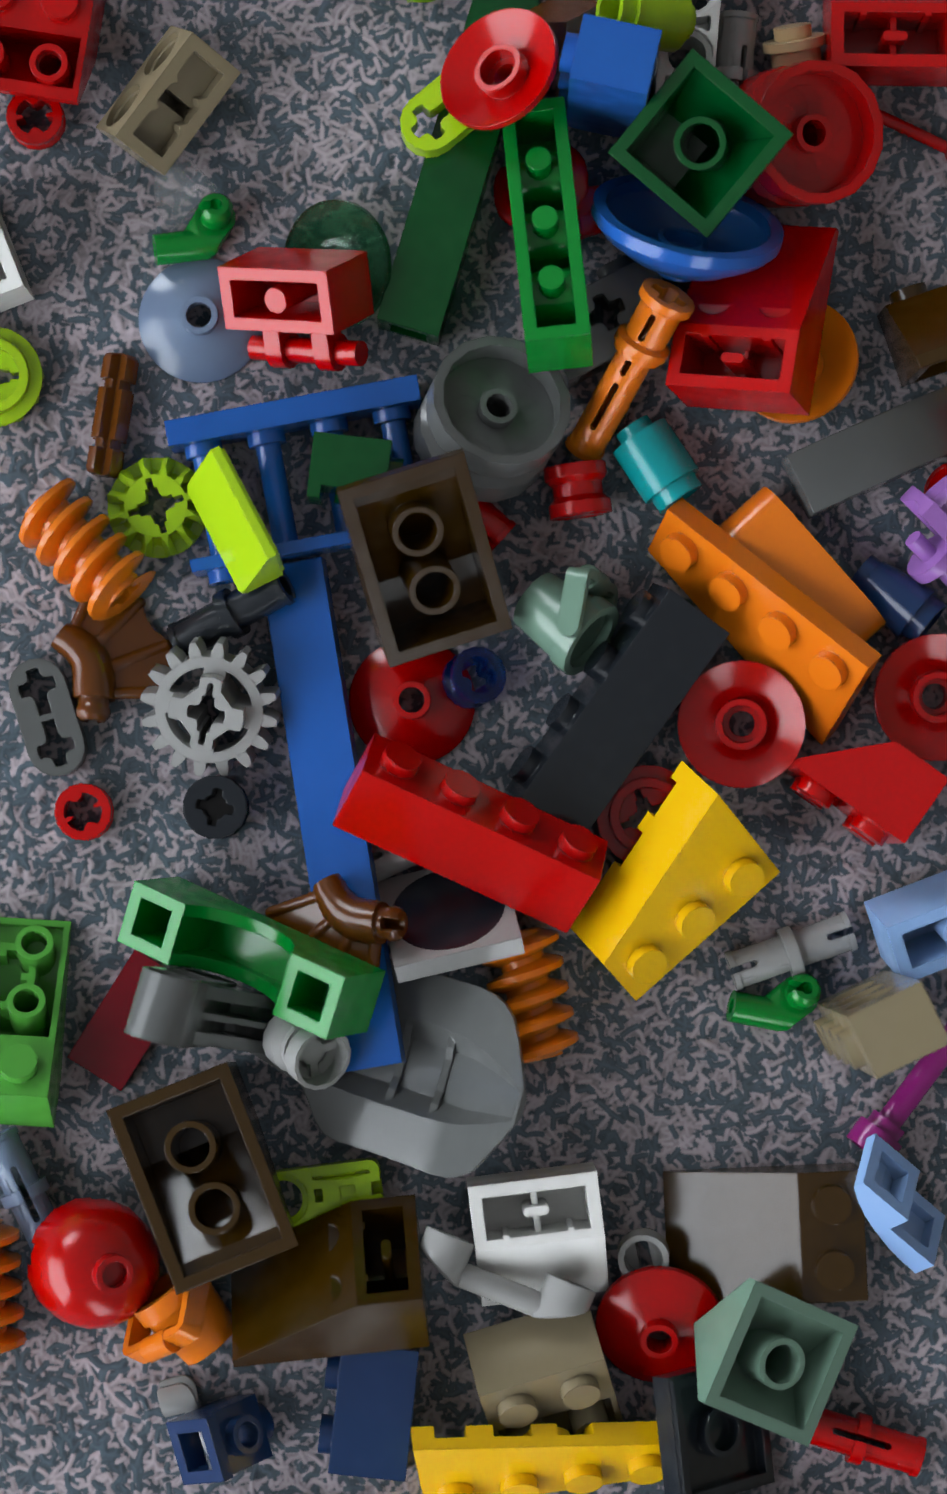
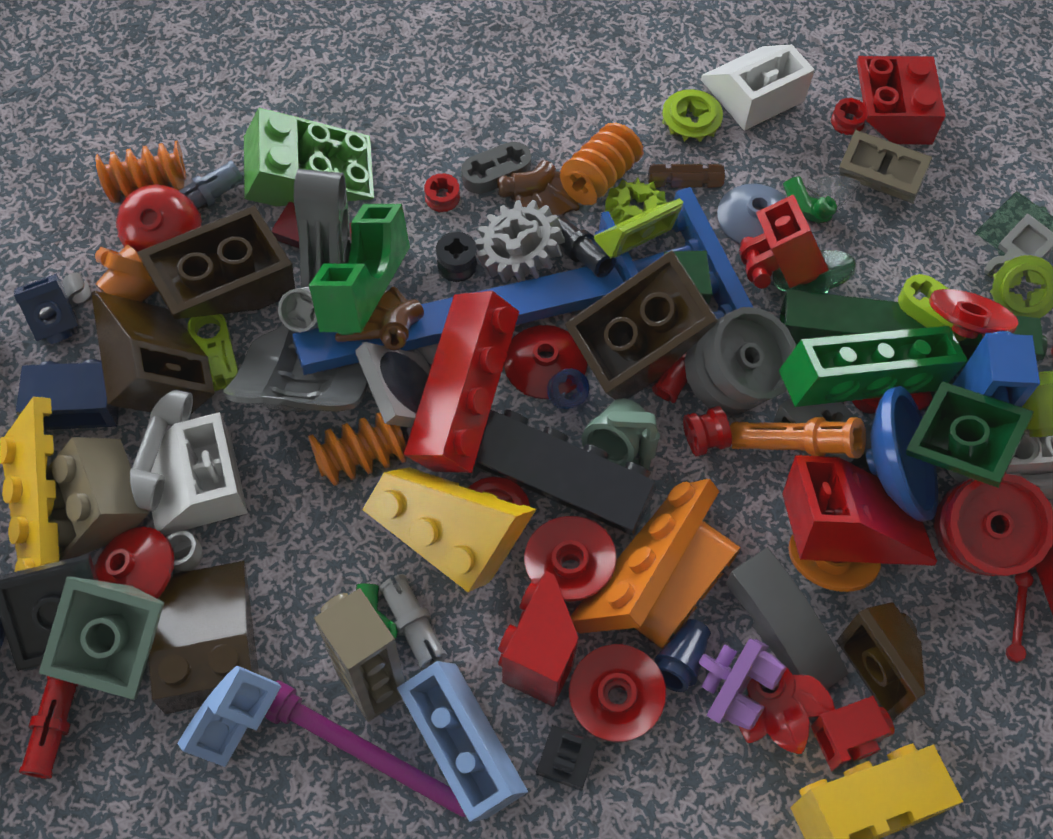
camera: 80 degrees right, 25 degrees down
(656, 462) = (740, 476): teal brick -> none

